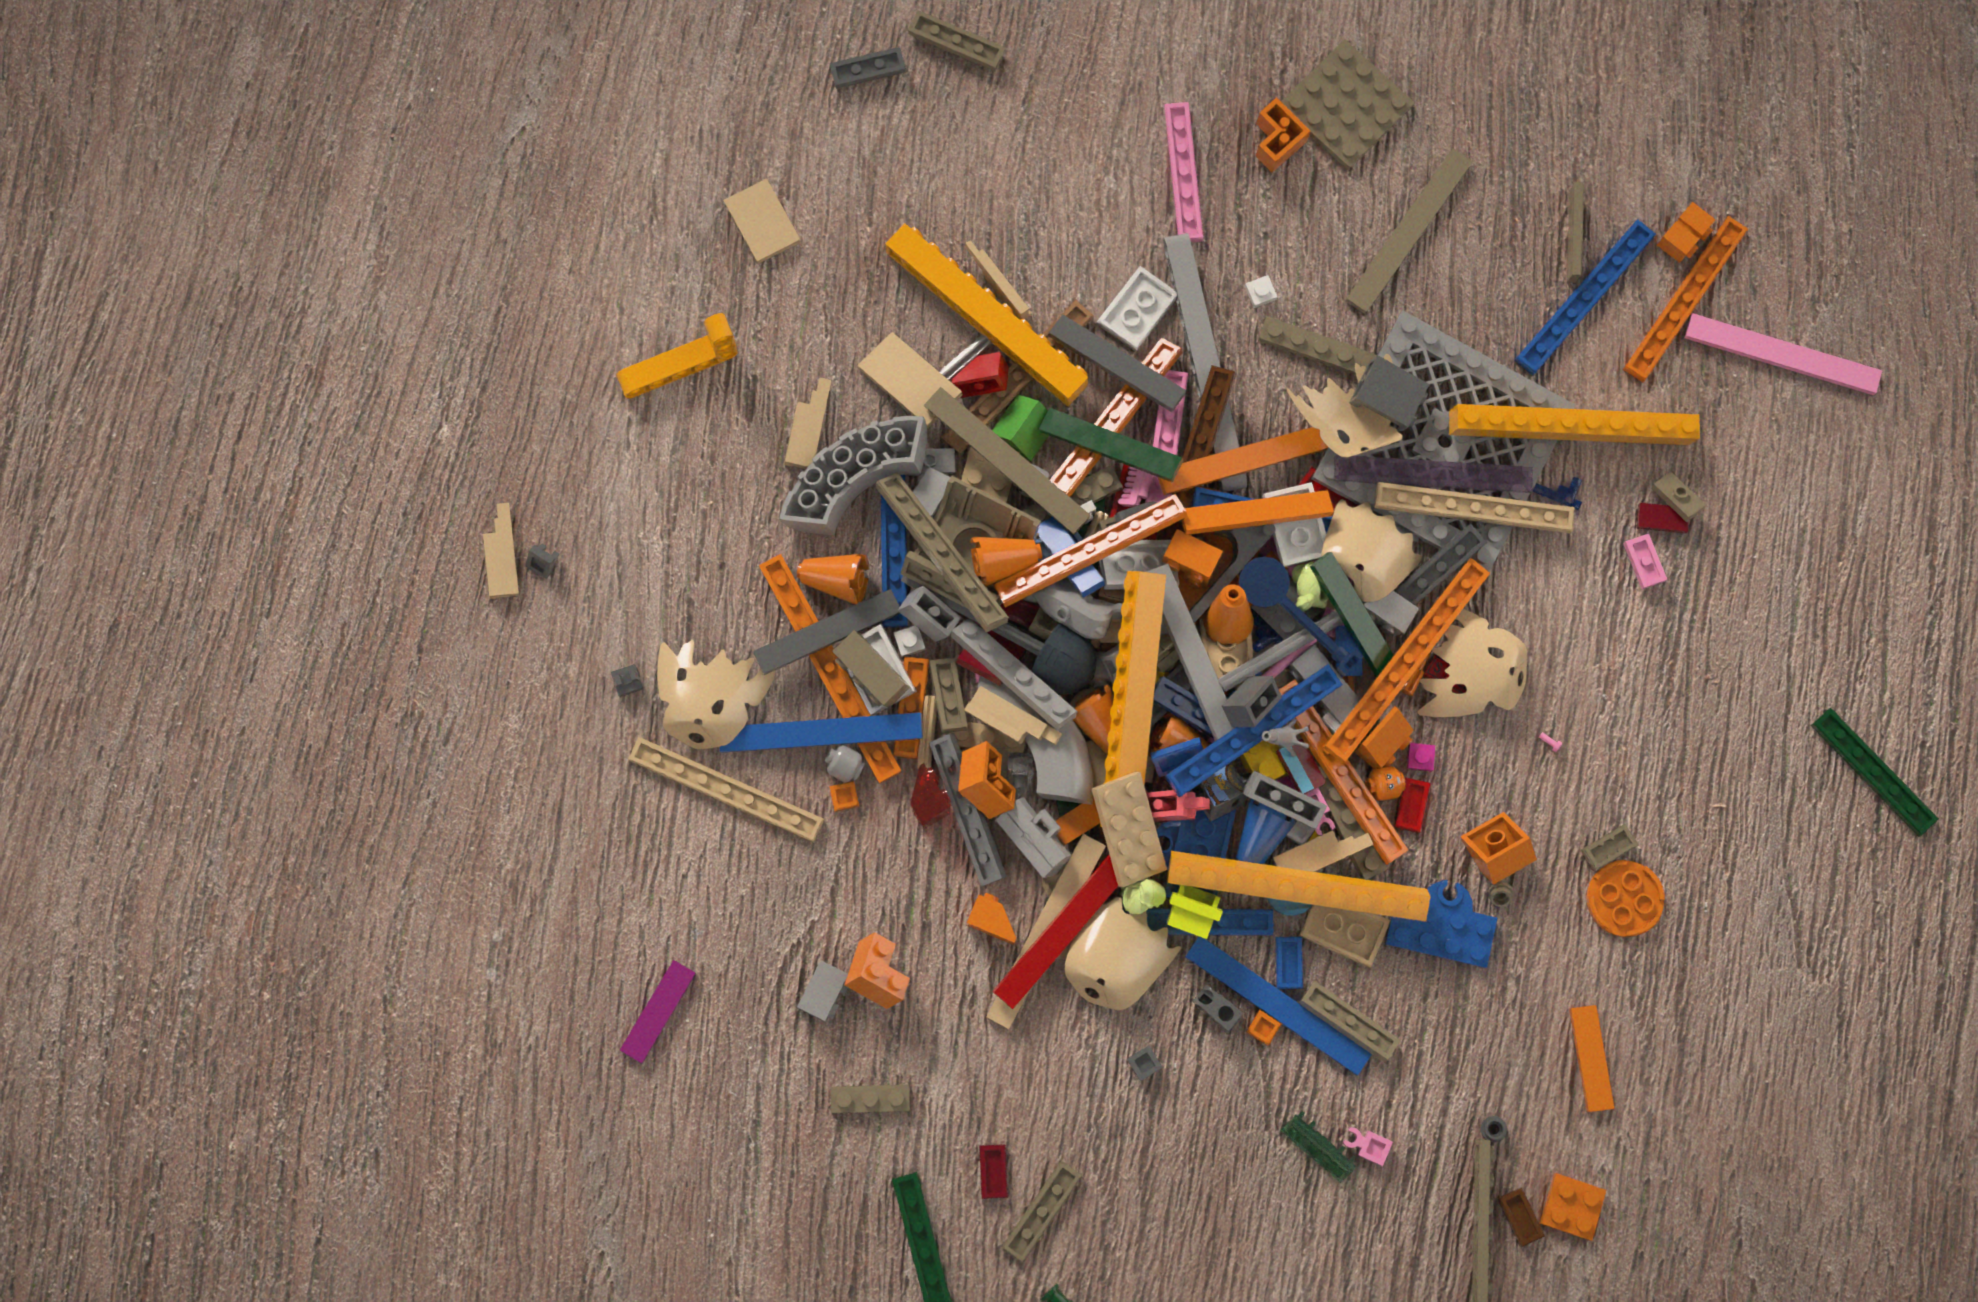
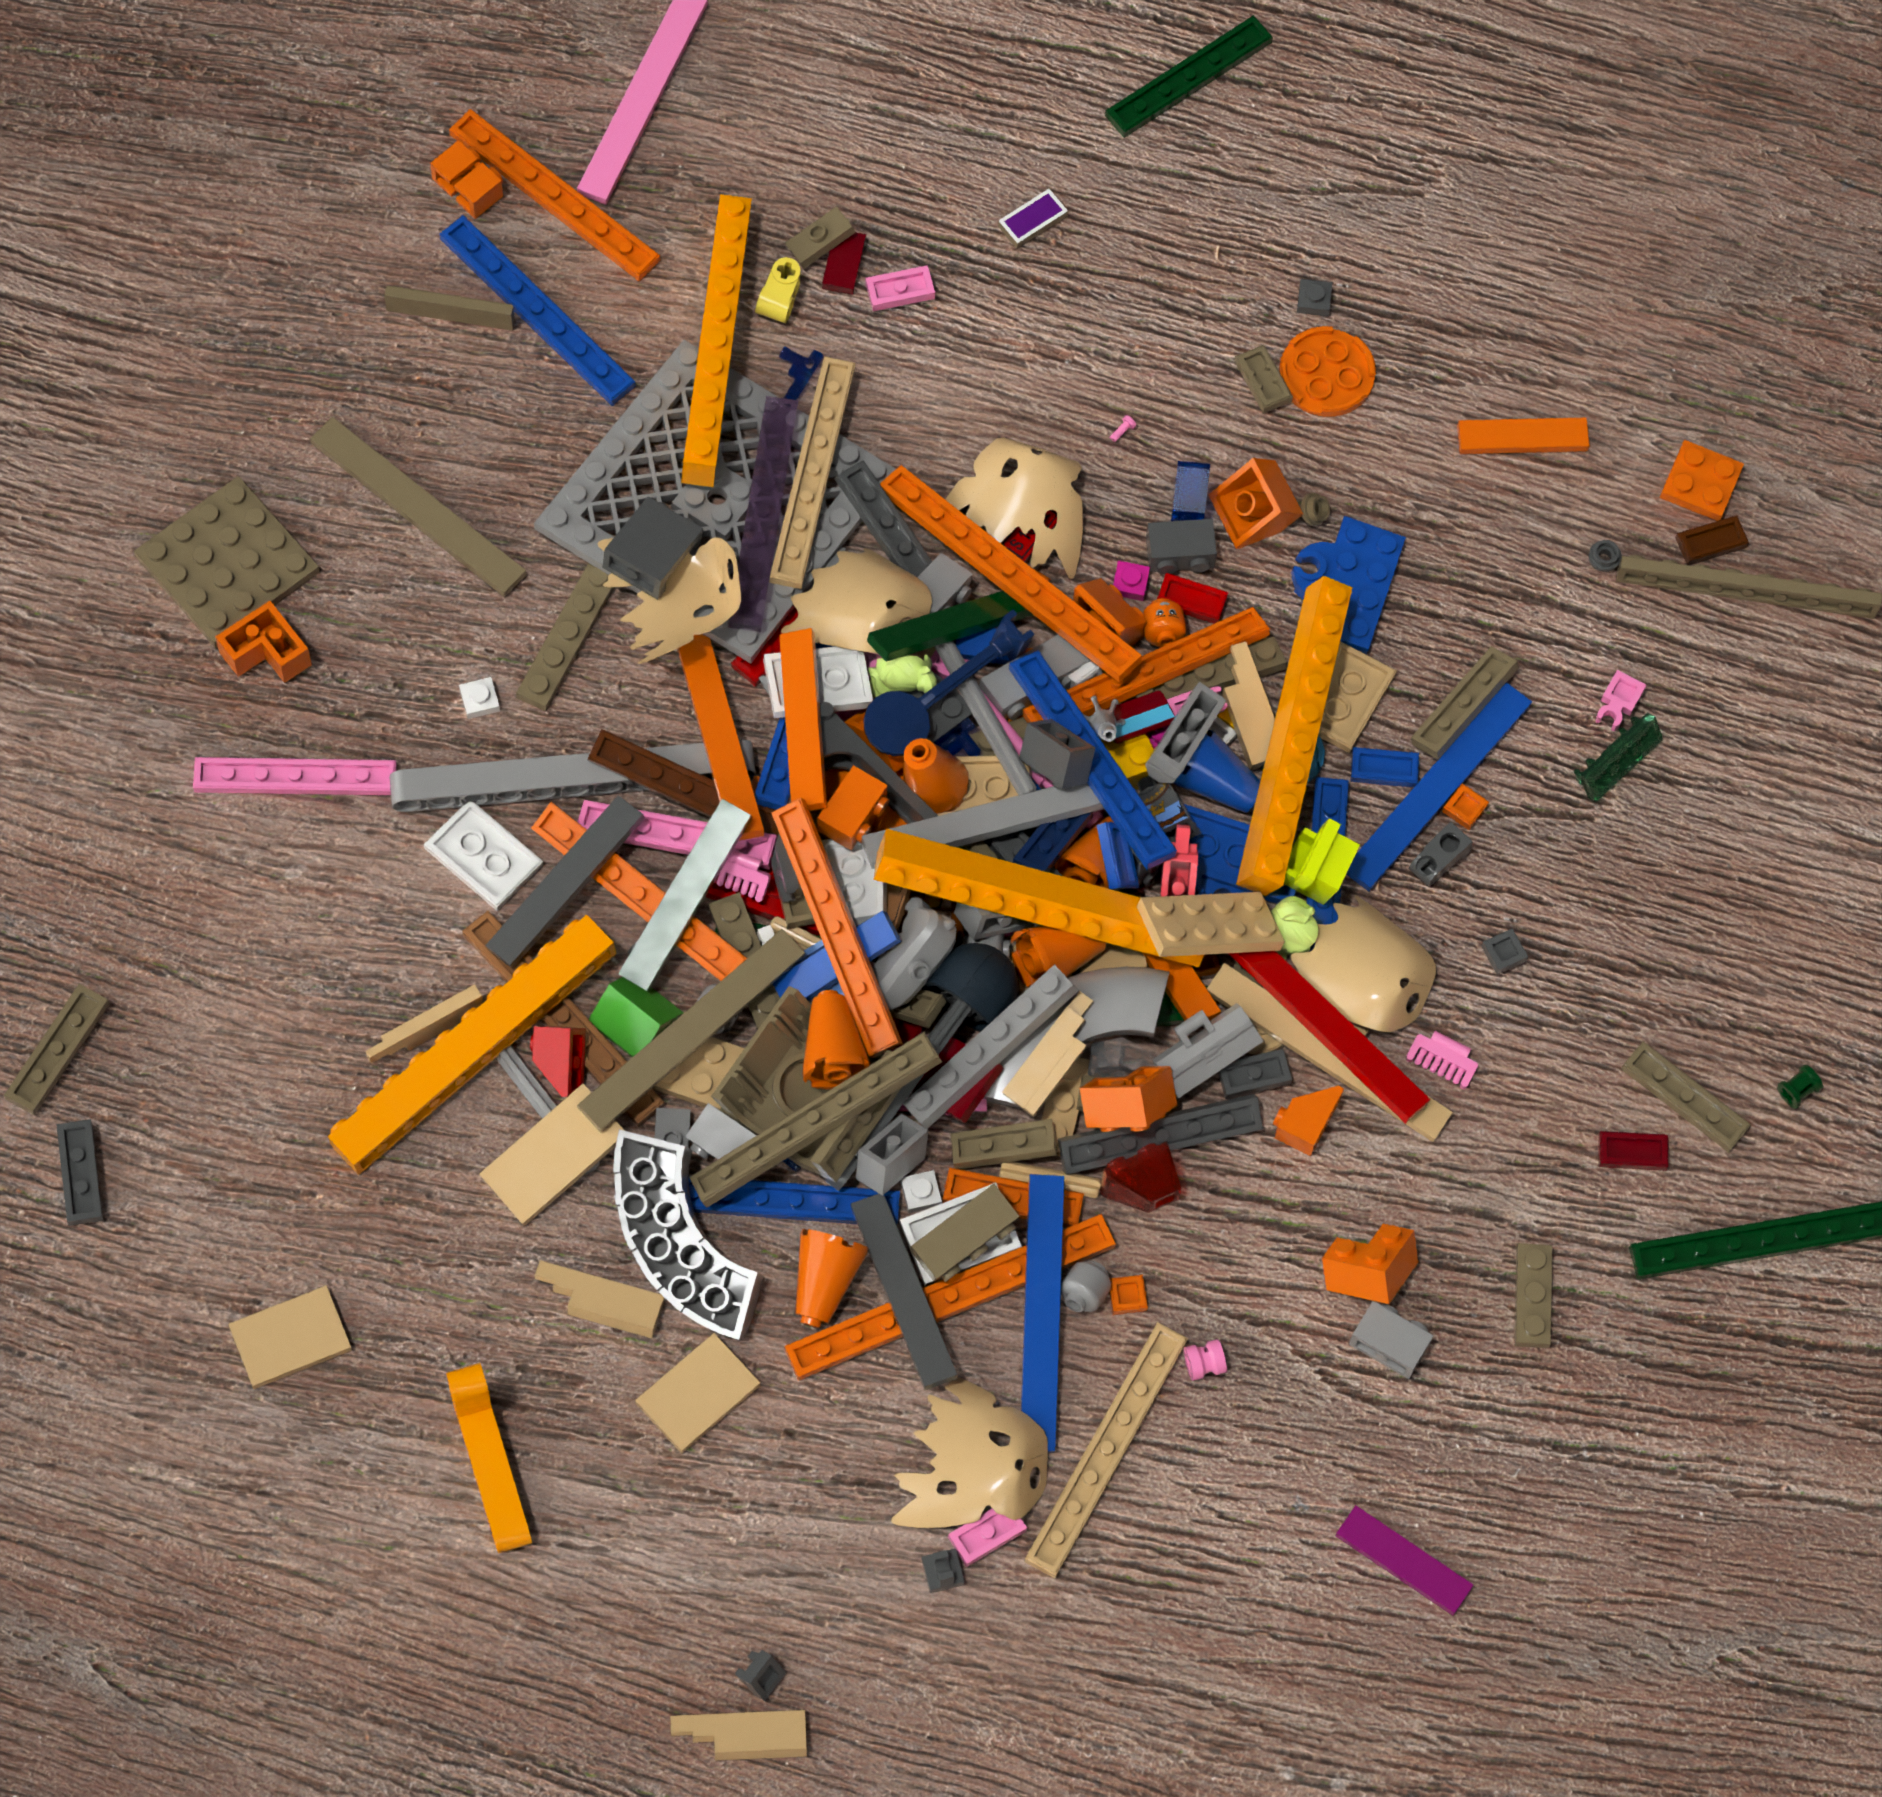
camera: 85 degrees left, 10 degrees down
(651, 705) = (985, 1535): none -> bright pink plate
(743, 499) = (697, 1393): none -> tan tile
(796, 854) = (1205, 1359): none -> bright pink wheel
(1024, 878) = (1255, 1074): none -> dark grey plate
(1060, 1021) = (1444, 1050): none -> bright pink piece
(1453, 792) = (1181, 546): none -> dark grey brick
(1494, 794) = (1190, 491): none -> clear blue slope
(1623, 470) = (779, 293): none -> light yellow piece
(1690, 884) = (1314, 297): none -> dark grey plate
(1724, 658) = (1032, 218): none -> tile

